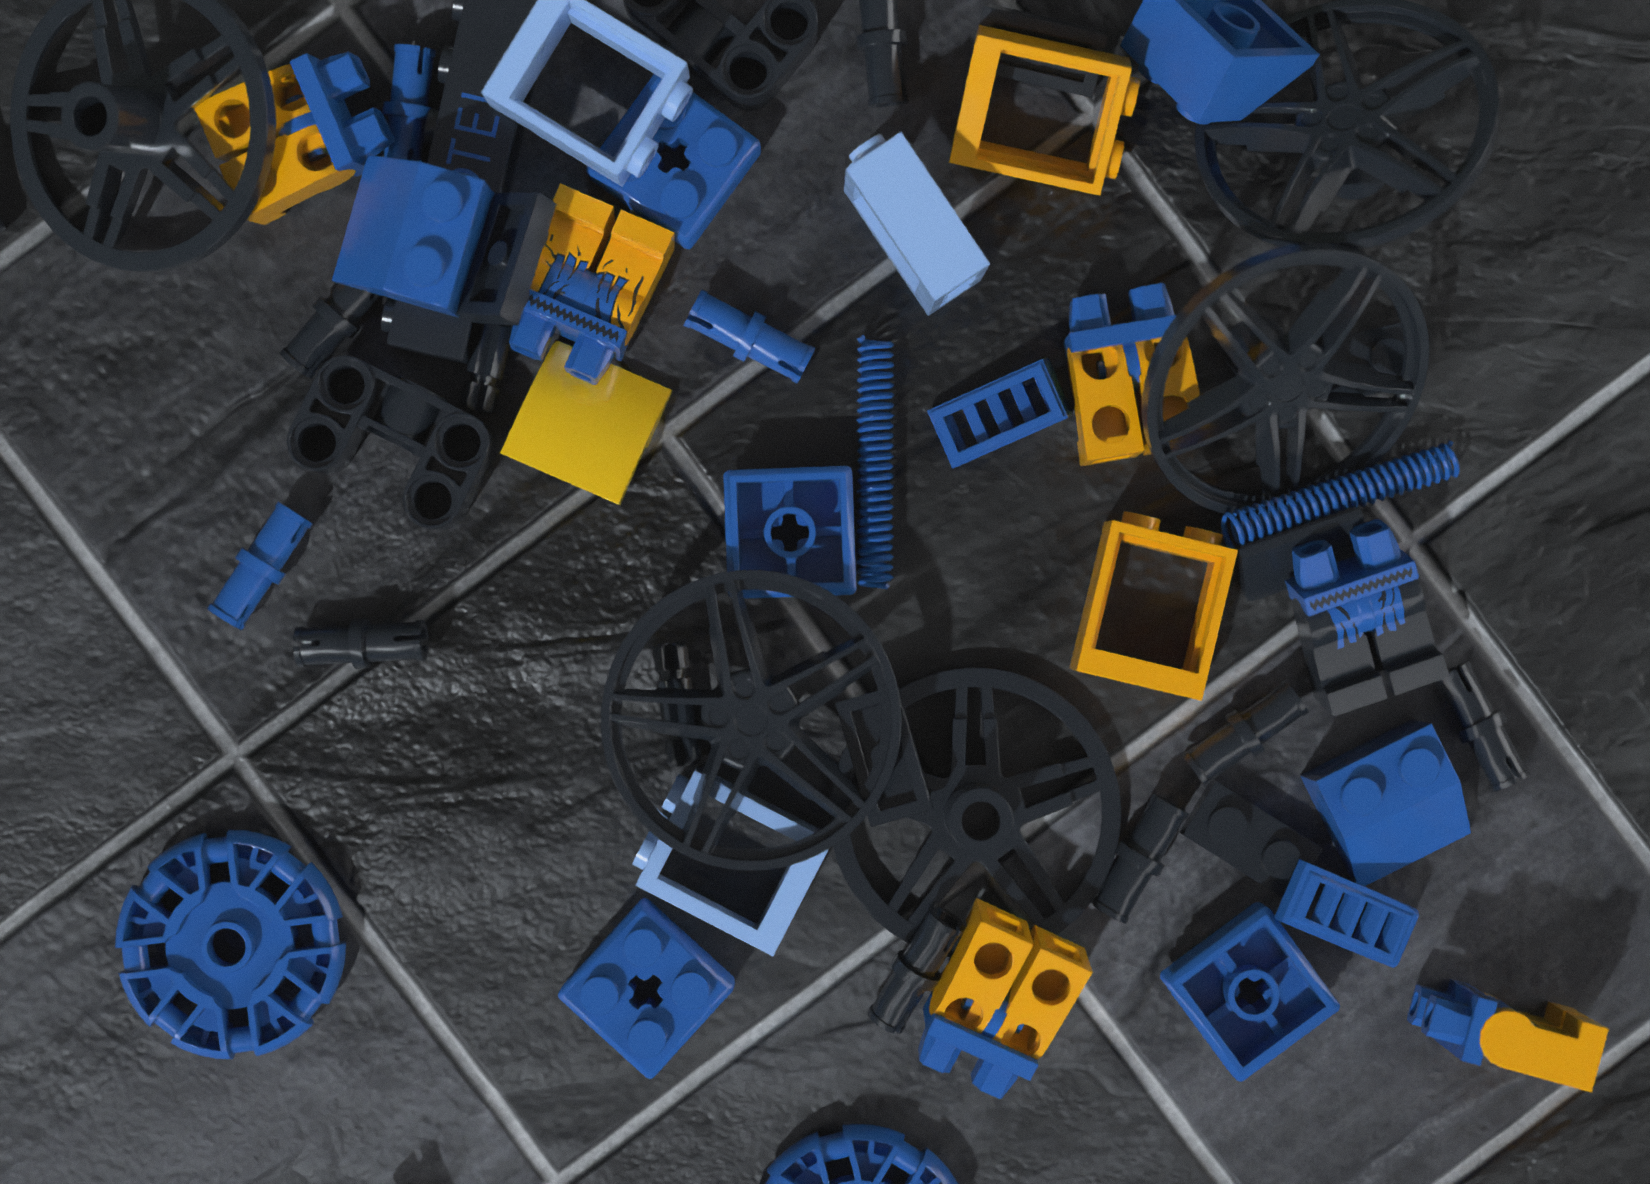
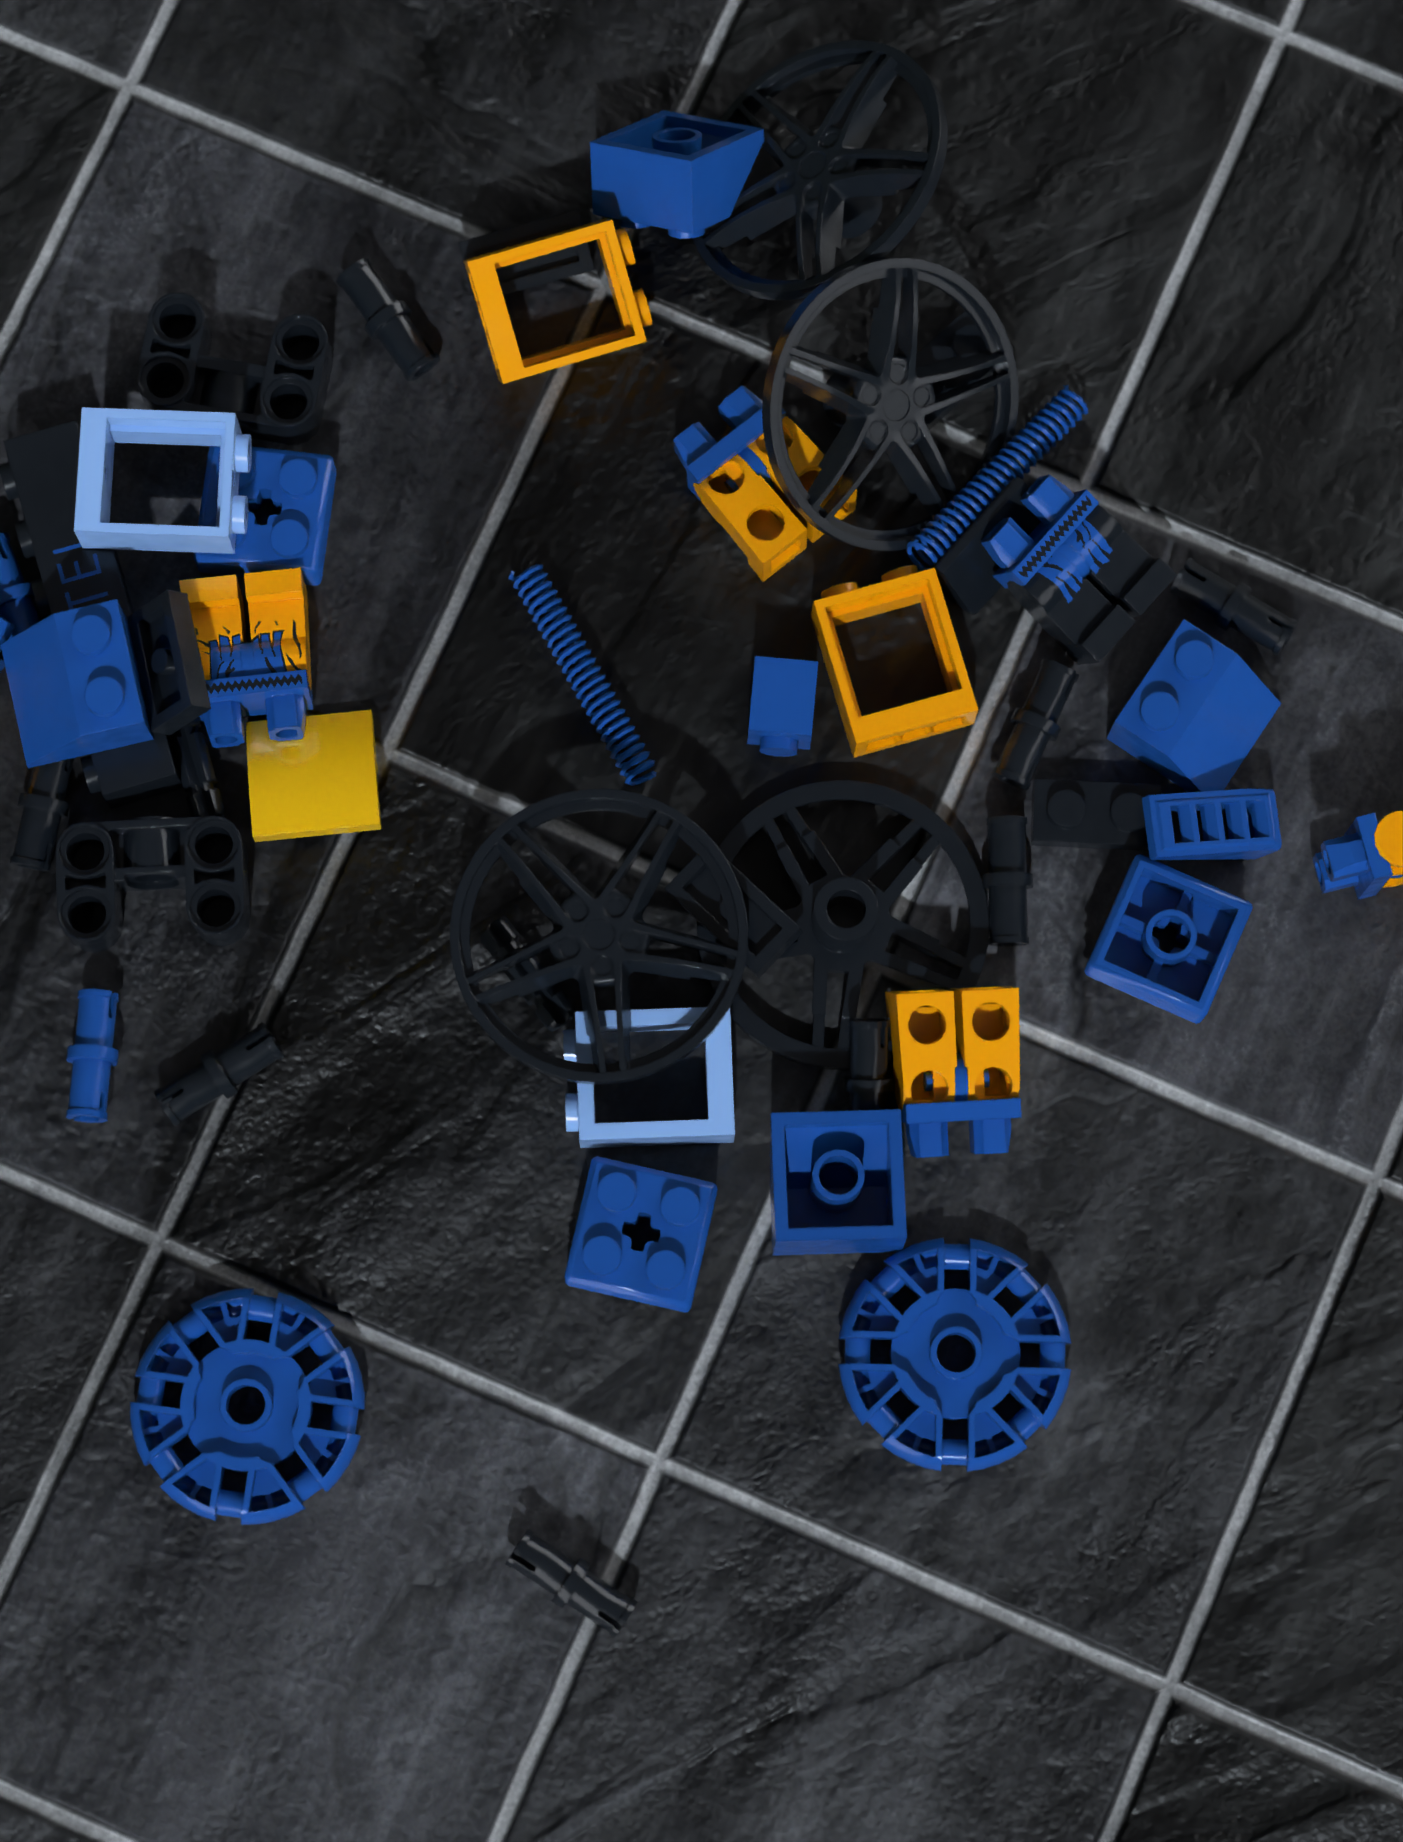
camera: 35 degrees left, 10 degrees down
(749, 336) = (414, 625): blue pin -> none
(819, 499) = (547, 728): blue brick -> none
(838, 1047) = (837, 1182): none -> blue slope
(913, 221) = (501, 449): light blue window -> none
(1032, 593) = (782, 705): none -> blue brick
(1049, 388) = (648, 559): blue slope -> none

